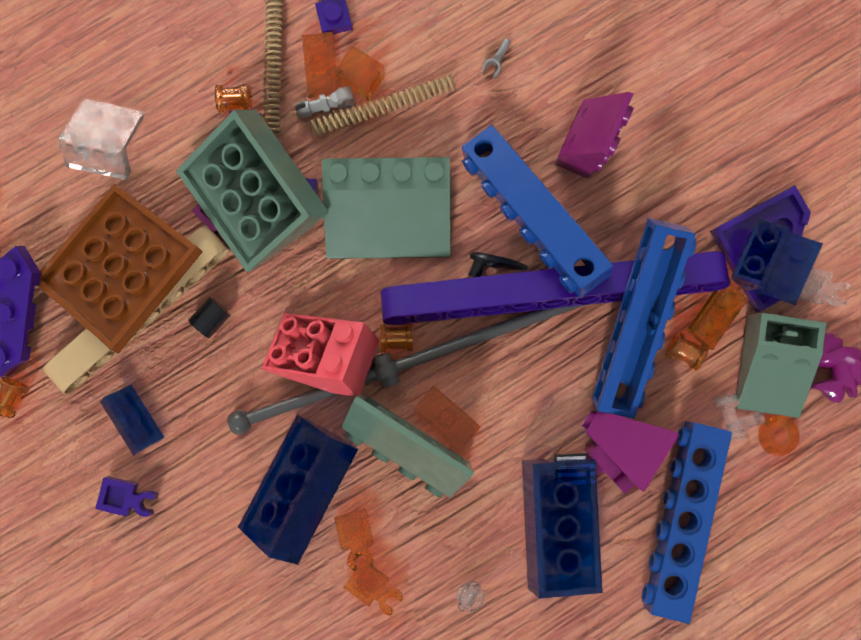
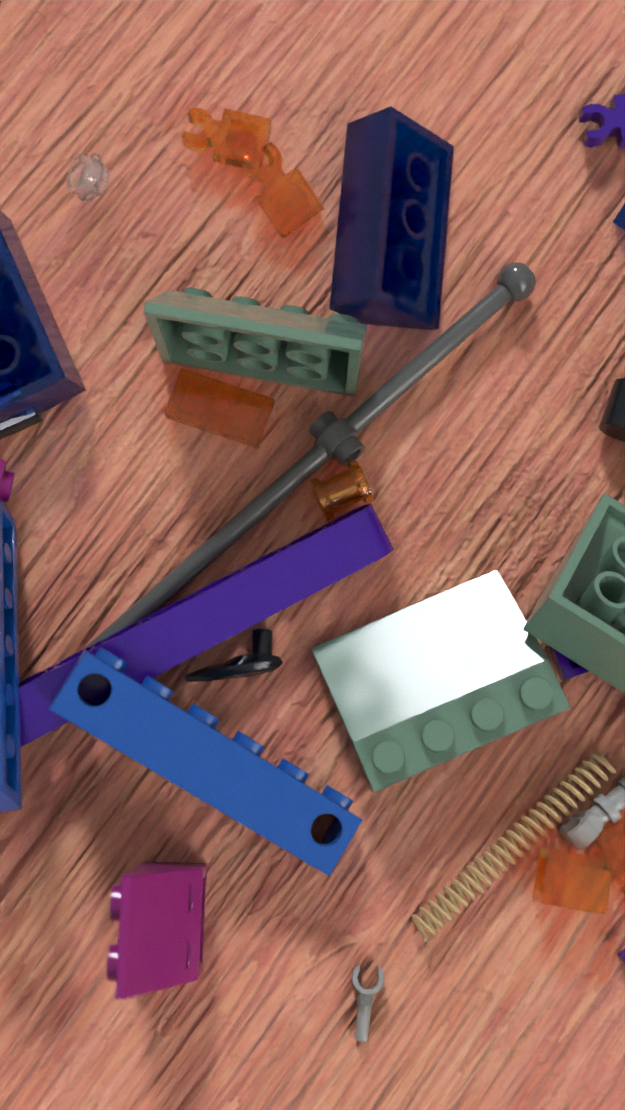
camera: 160 degrees right, 5 degrees down
(322, 353) = (440, 421): coral slope -> none

